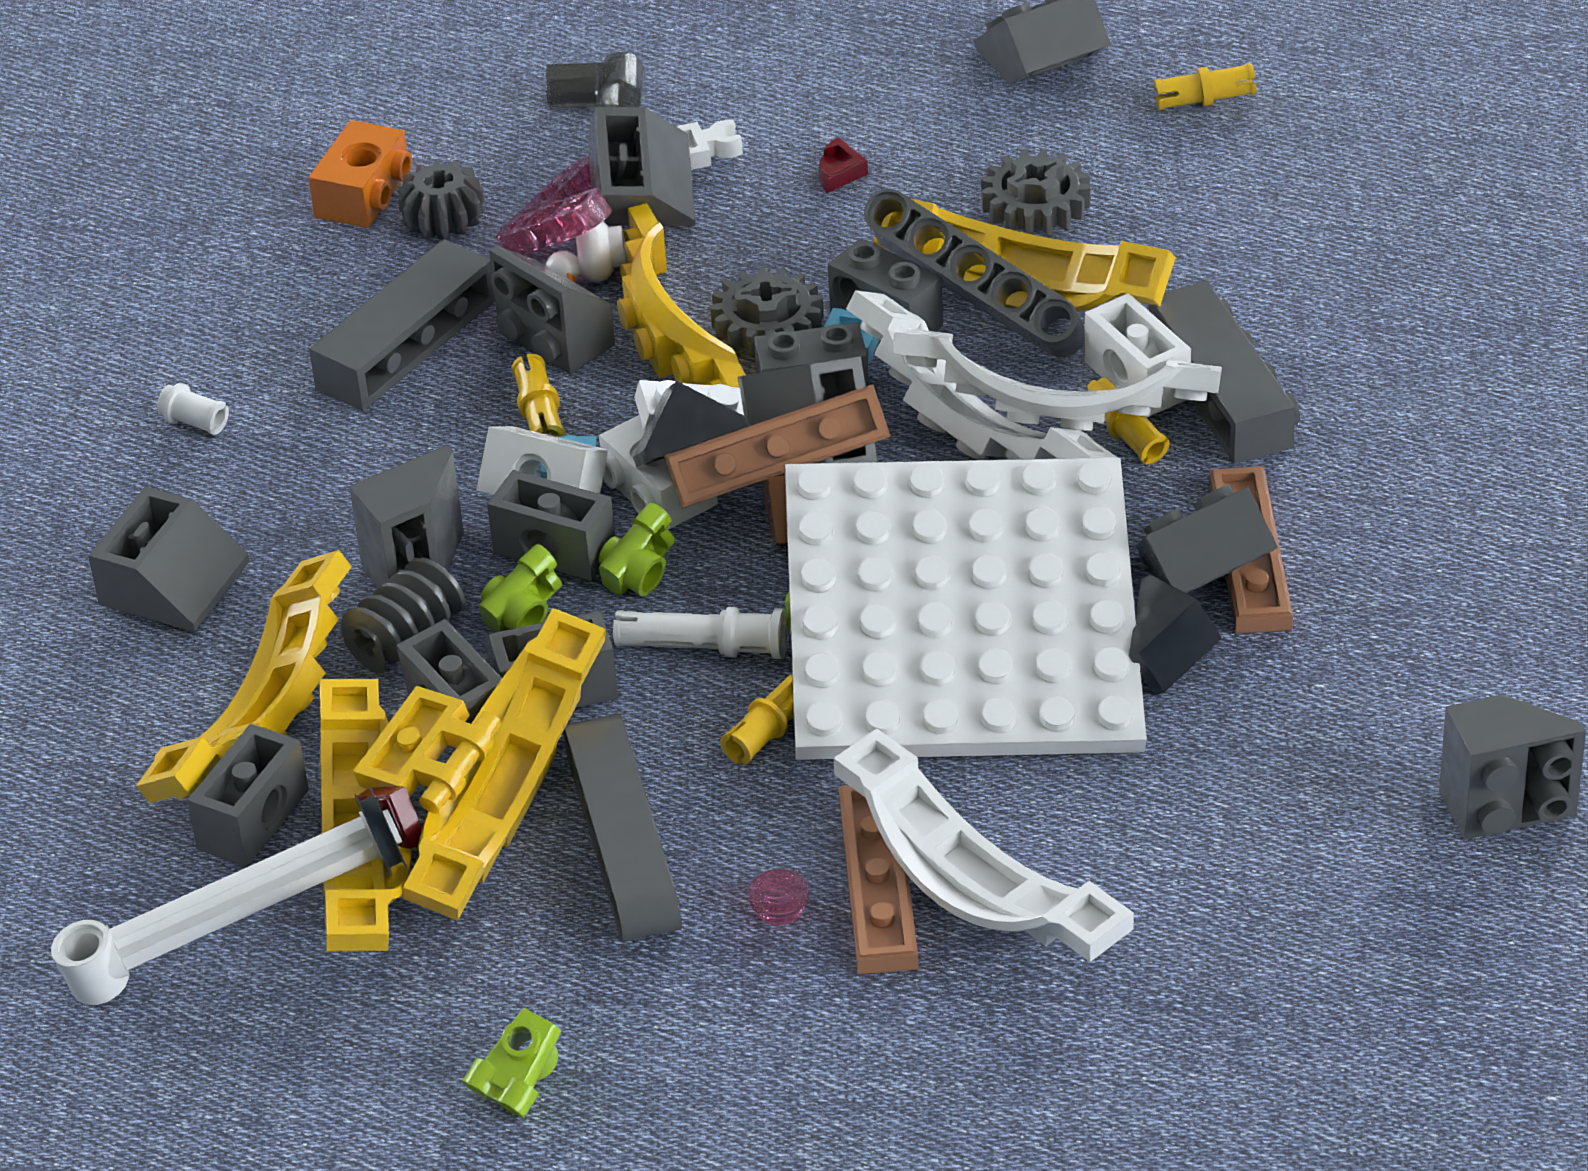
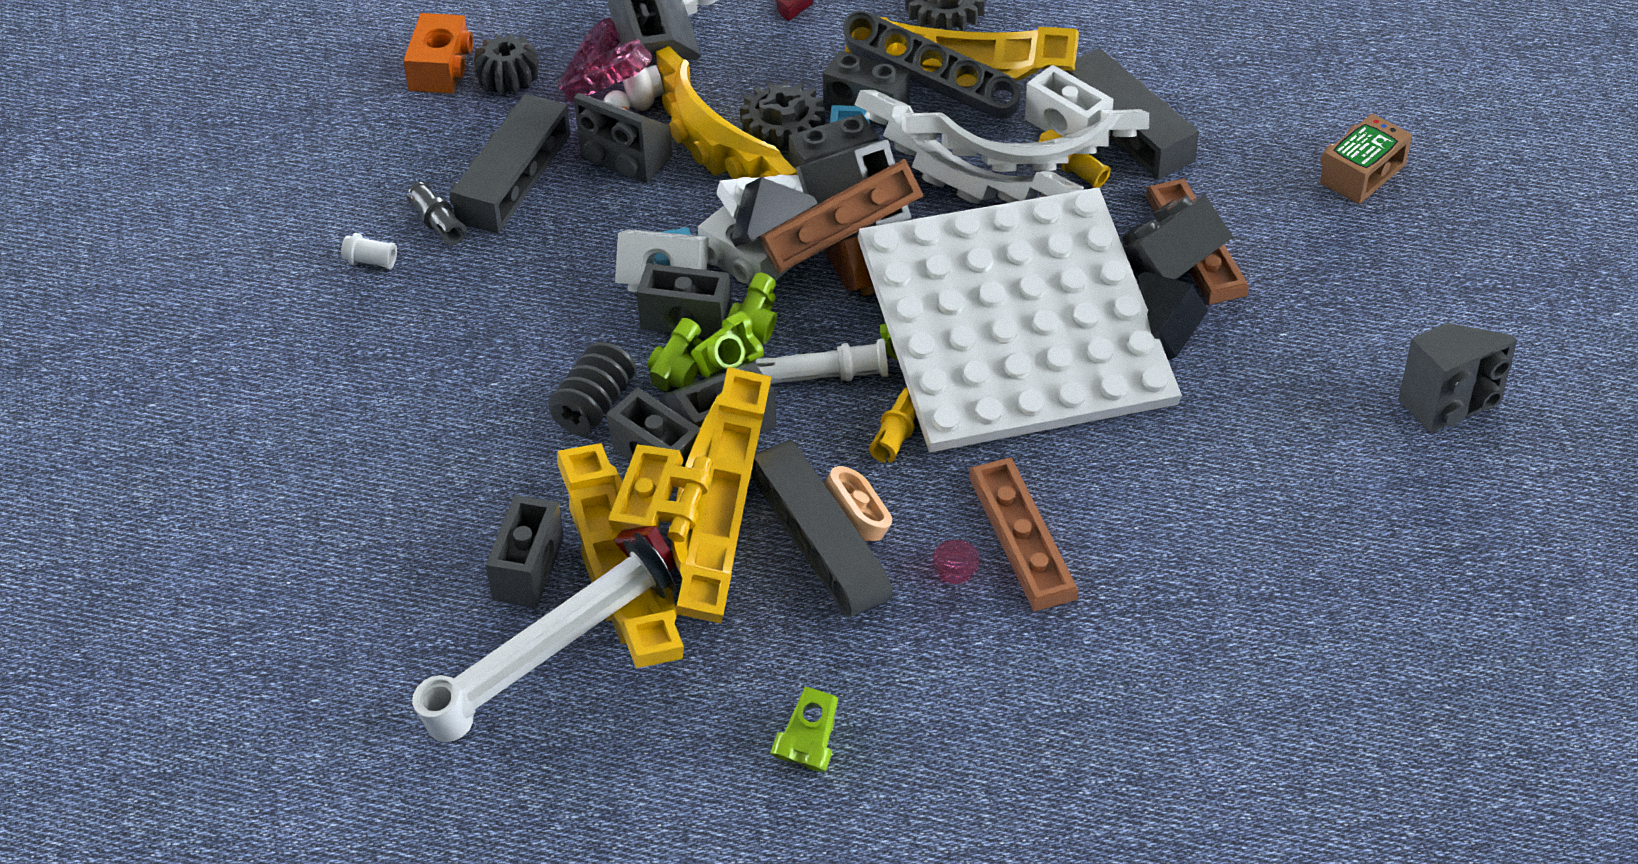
camera: 15 degrees left, 5 degrees up
(165, 561) = (393, 375): dark grey slope -> none
(275, 685) = (509, 462): yellow piece -> none
(290, 374) = (436, 213): none -> dark grey pin
(408, 515) = (573, 313): dark grey slope -> none
(536, 397) = (633, 205): yellow pin -> none
(593, 587) = (728, 346): none -> lime plate
(679, 806) = (859, 502): none -> light nougat plate
(963, 867) = (1095, 519): white piece -> none
(1516, 475) = (1365, 158): none -> medium nougat brick

